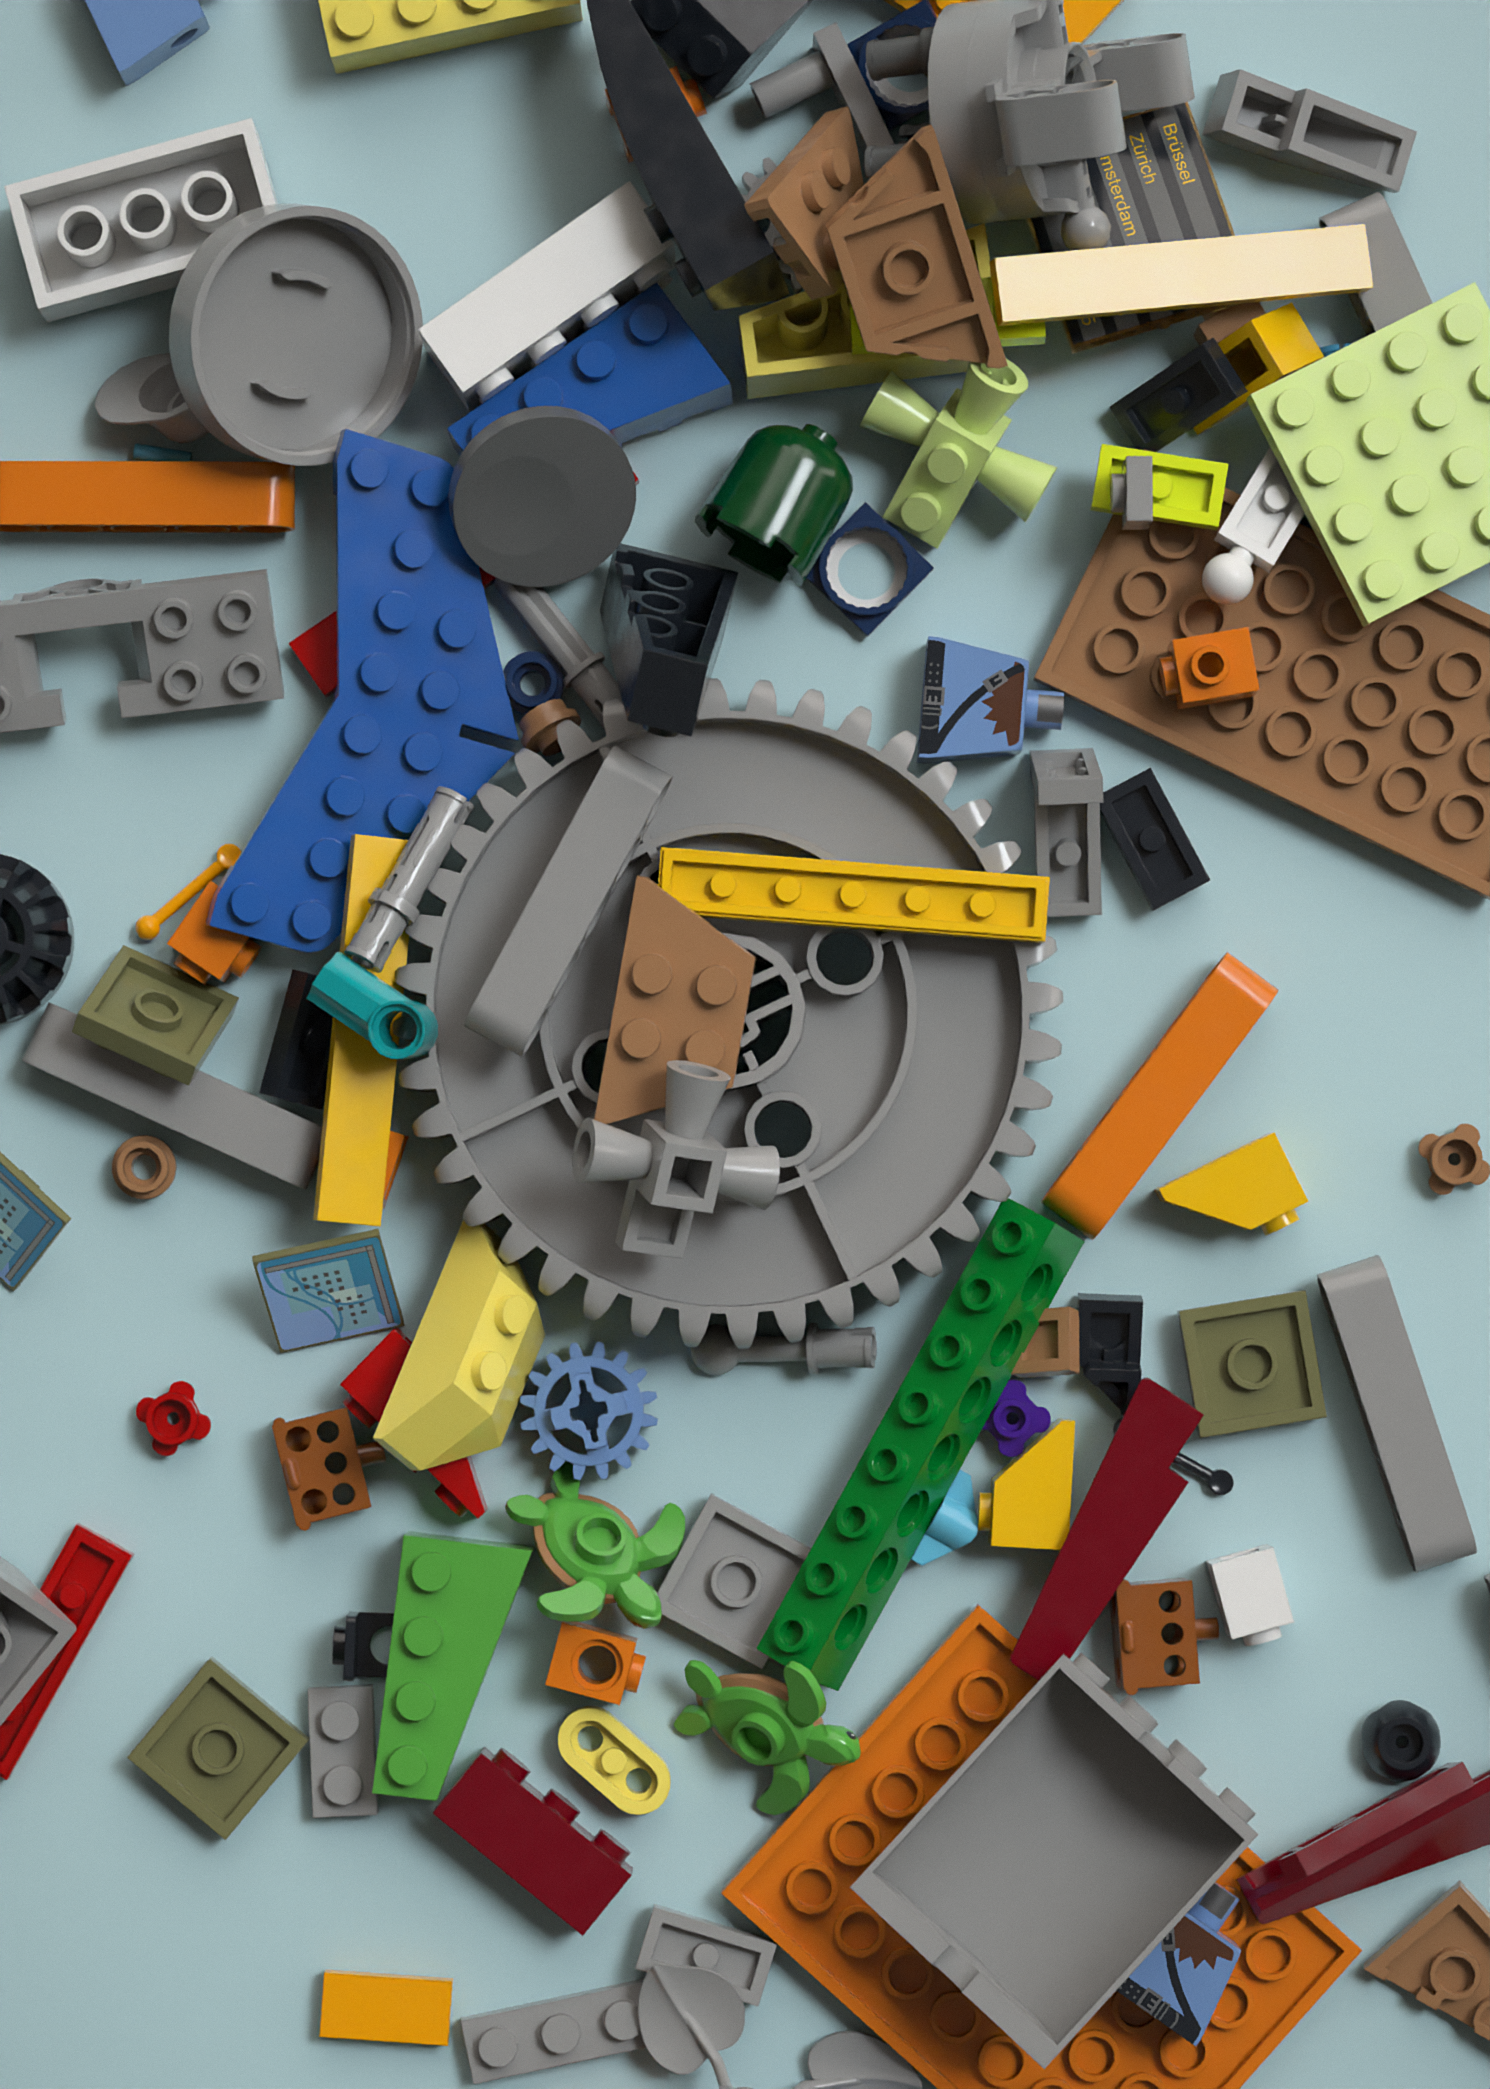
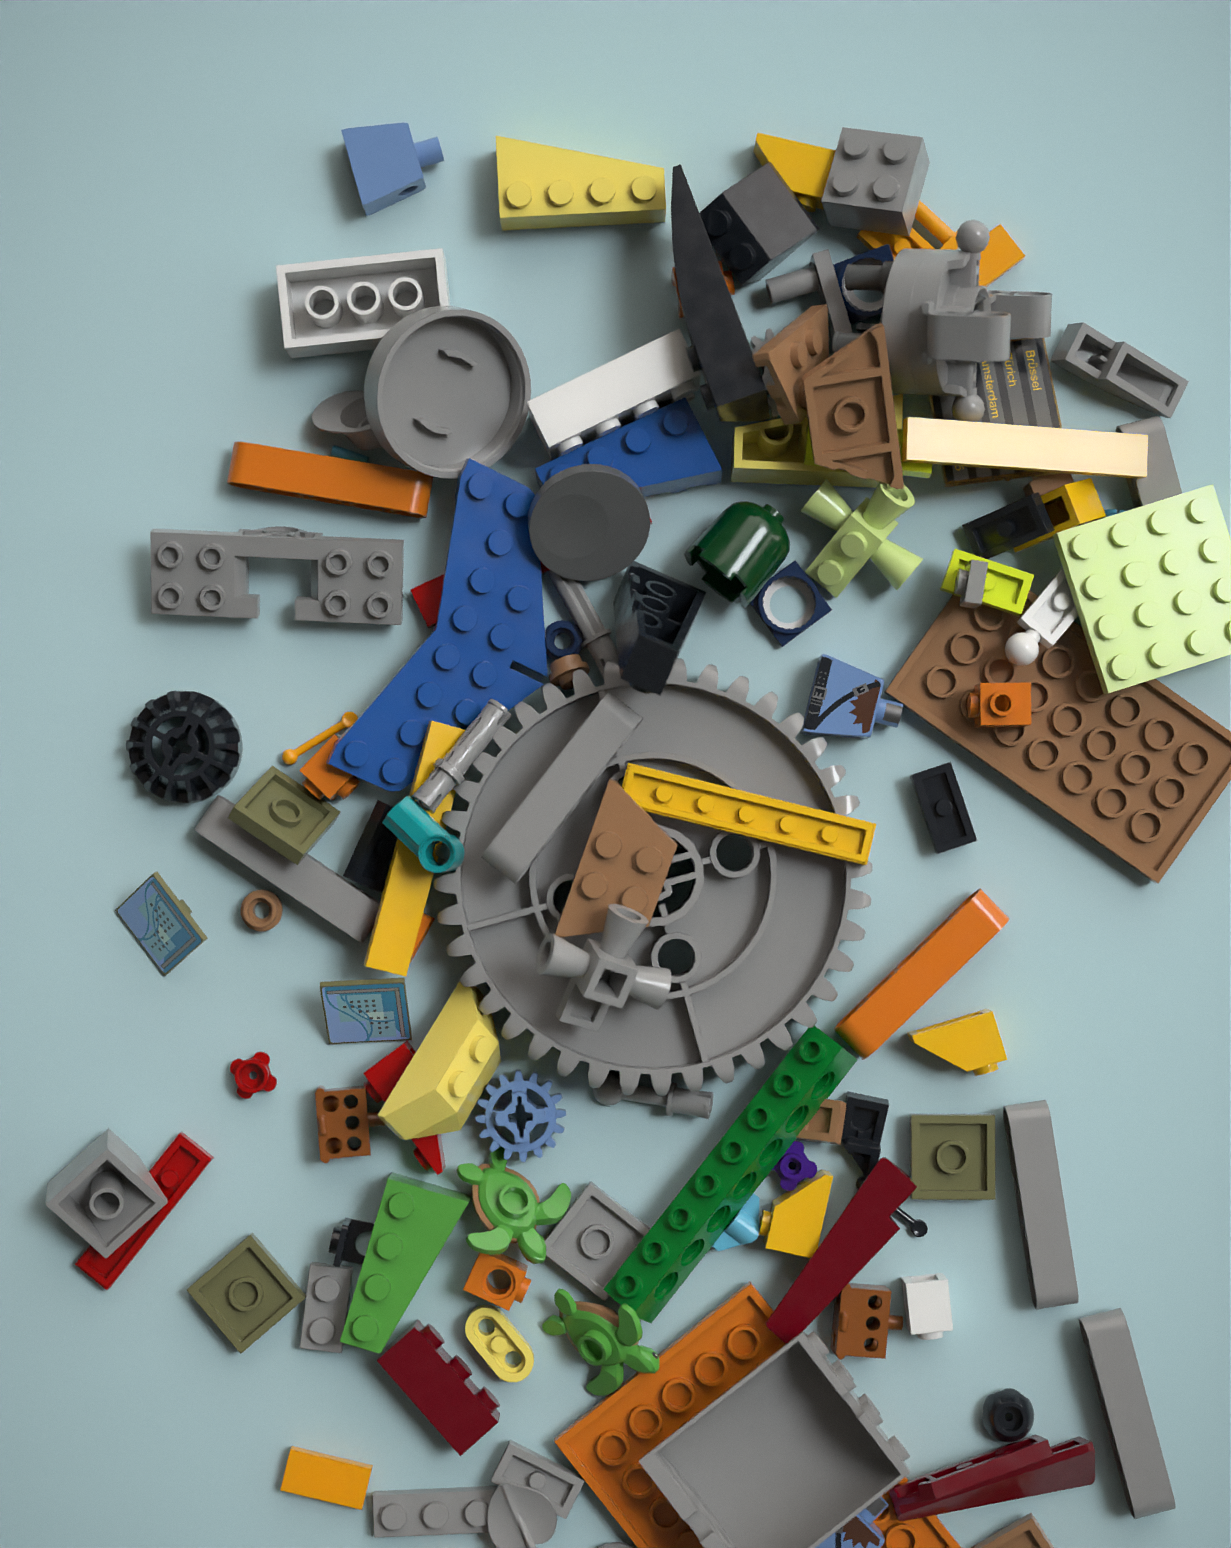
camera: 10 degrees right, 0 degrees up
(1068, 828) = (891, 791): light grey bracket -> none
(1471, 1165) = (1112, 1054): medium nougat plate -> none

